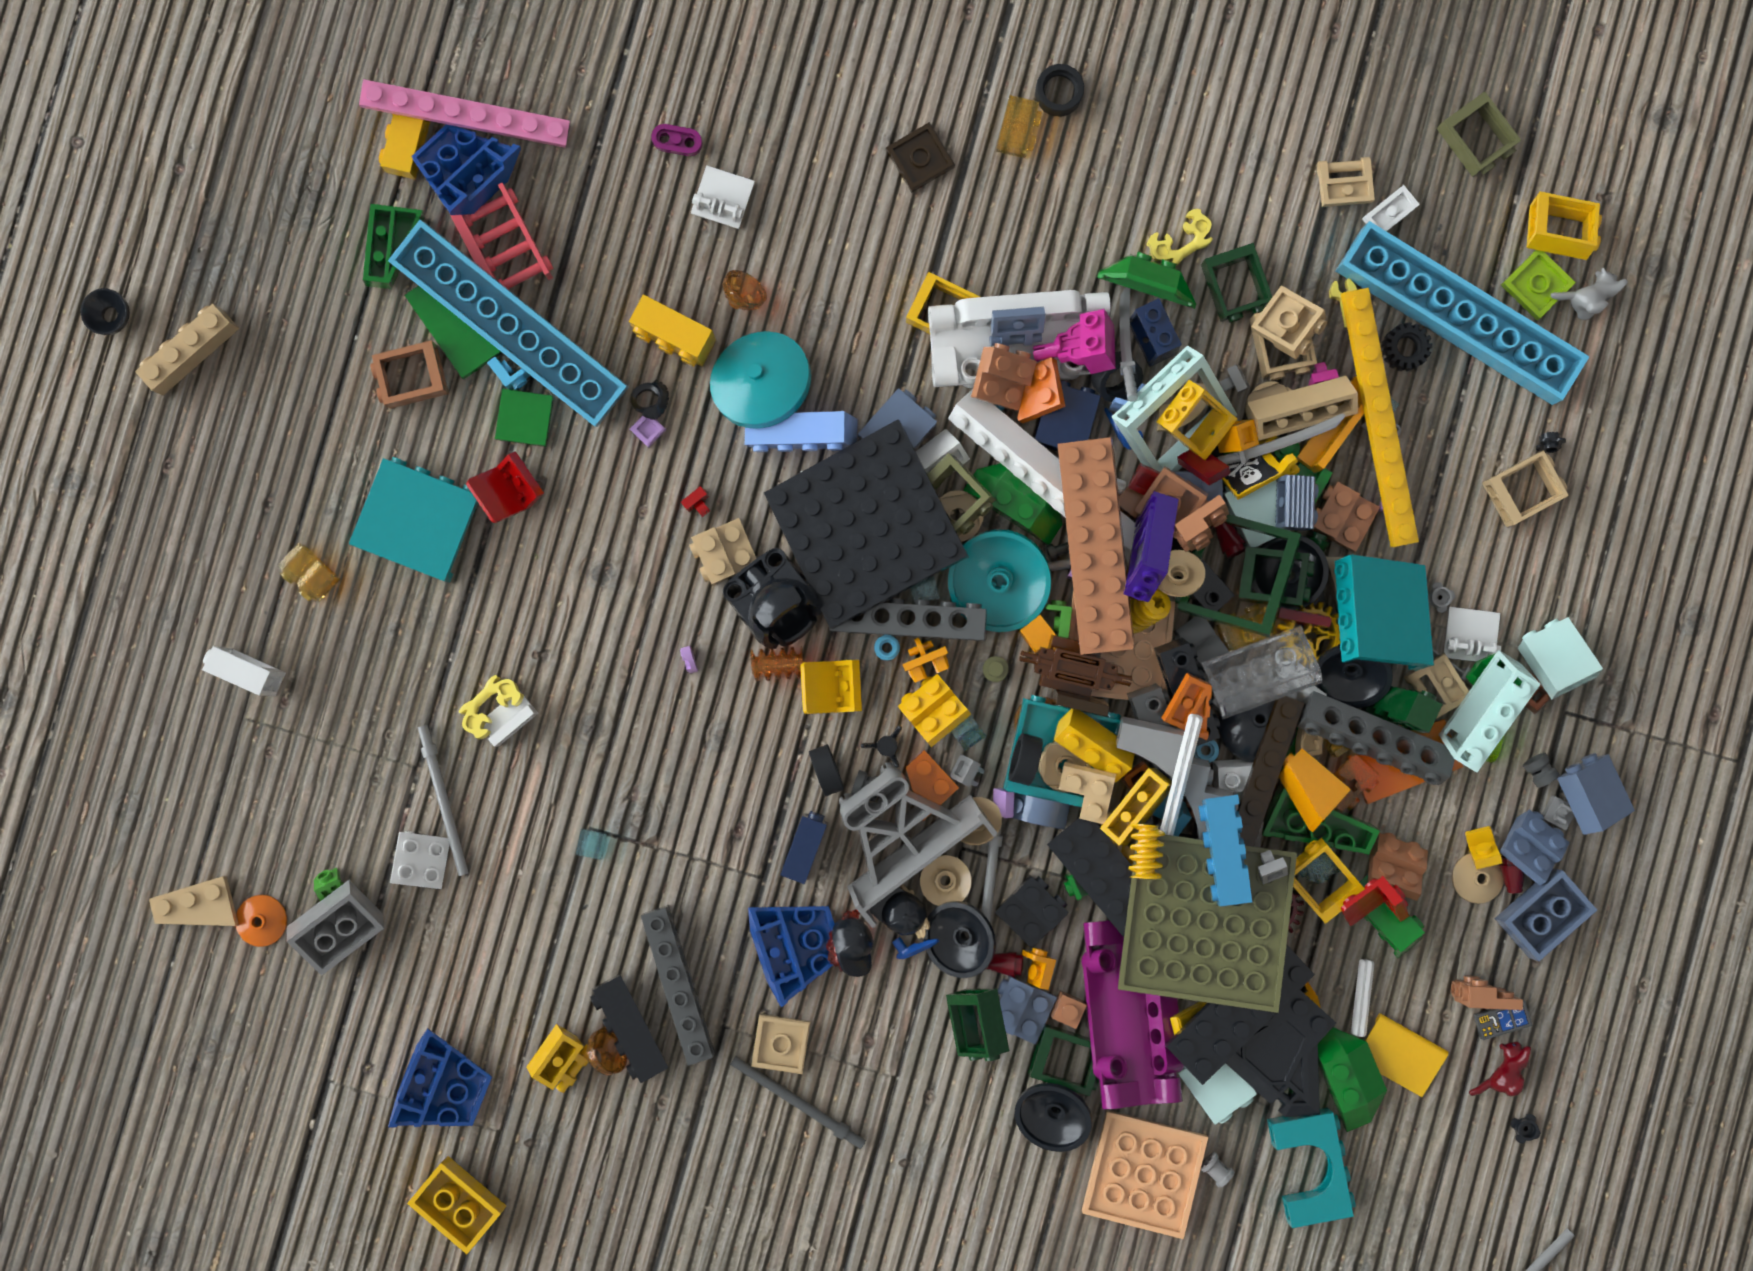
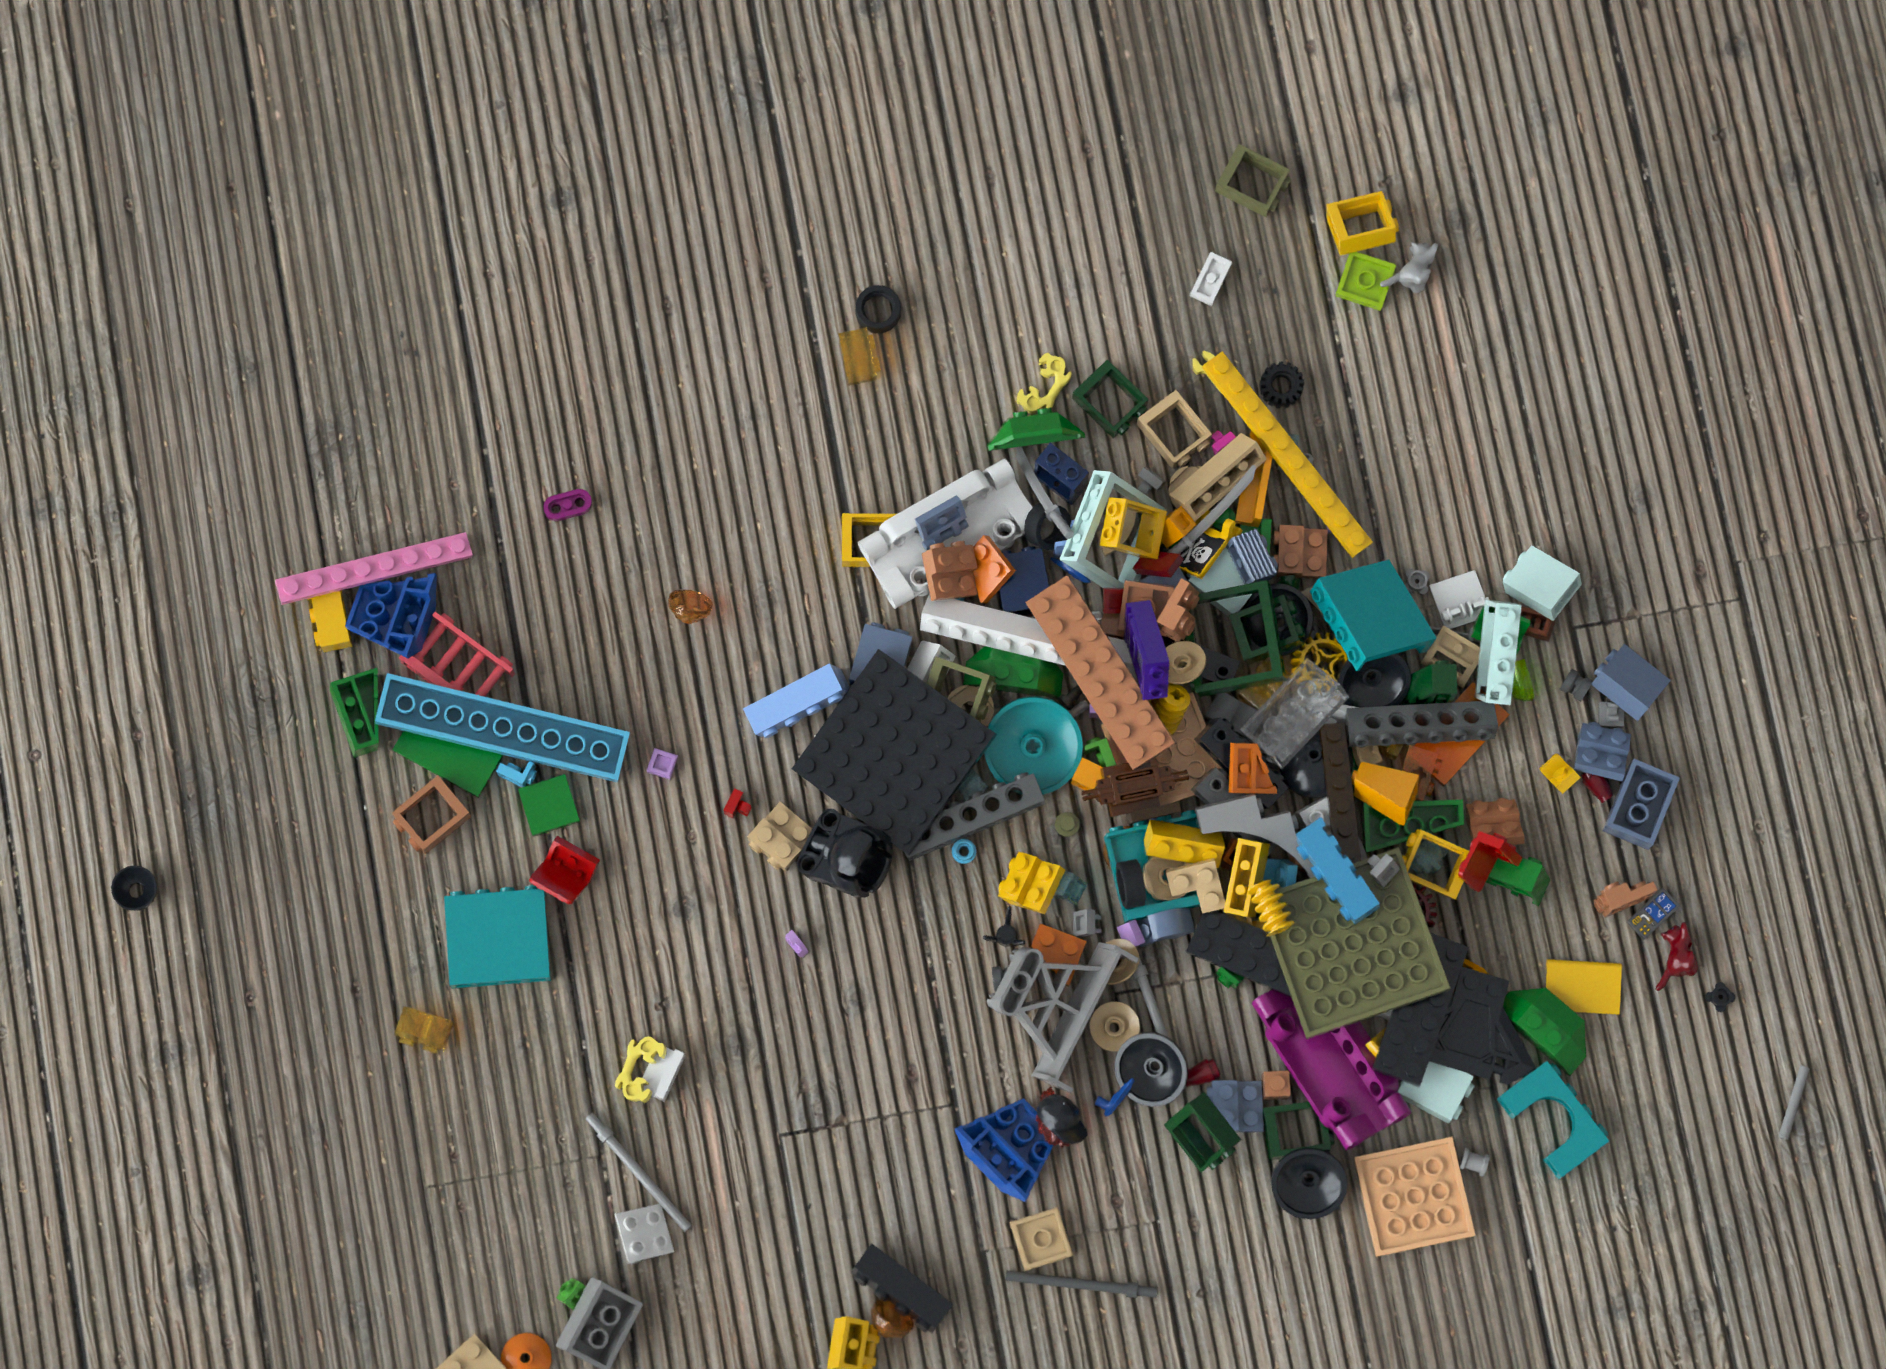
camera: 30 degrees left, 10 degrees down
(187, 349) = (223, 886): tan brick -> none
(243, 671) = (408, 1139): white window -> none
(591, 844) = (788, 1146): clear light blue plate -> none
(654, 411) = (660, 745): black piece -> none
(672, 331) = (645, 668): yellow brick -> none
(678, 985) = (925, 1229): dark grey brick -> none
(722, 197) = (630, 535): white hinge -> none
(760, 380) = (742, 673): teal dish -> none
(776, 664) = (875, 909): clear orange piece -> none
(804, 847) = (978, 1054): dark blue brick -> none
(826, 770) = (963, 979): black tyre -> none
(831, 686) = (933, 906): yellow bracket -> none
(902, 913) = (1089, 1072): black hair -> none
(915, 666) = (996, 854): light orange hips -> none
(920, 157) = (785, 421): dark brown tile -> none
(1032, 910) = (1202, 1016): black plate -> none
(1041, 969) = (1235, 1061): light orange bracket -> none
(1084, 343) = (1005, 510): dark pink brick -> none
(1181, 774) = (1268, 828): white axle -> none
(1214, 751) = (1284, 799): medium azure plate -> none
(1230, 540) = (1213, 617): dark red cone -> none
(1290, 322) = (1171, 411): tan plate -> none
(1304, 618) = (1307, 651): dark red tile -> none
(1347, 189) = (1164, 278): tan plate -> none
(1362, 997) = (1524, 953): white axle -> none
(1462, 314) = (1313, 335): medium azure brick -> none
(1466, 884) = (1569, 815): tan dish -> none
(1502, 500) = (1428, 474): tan window -> none
(1550, 442) = (1443, 407): black plate -> none

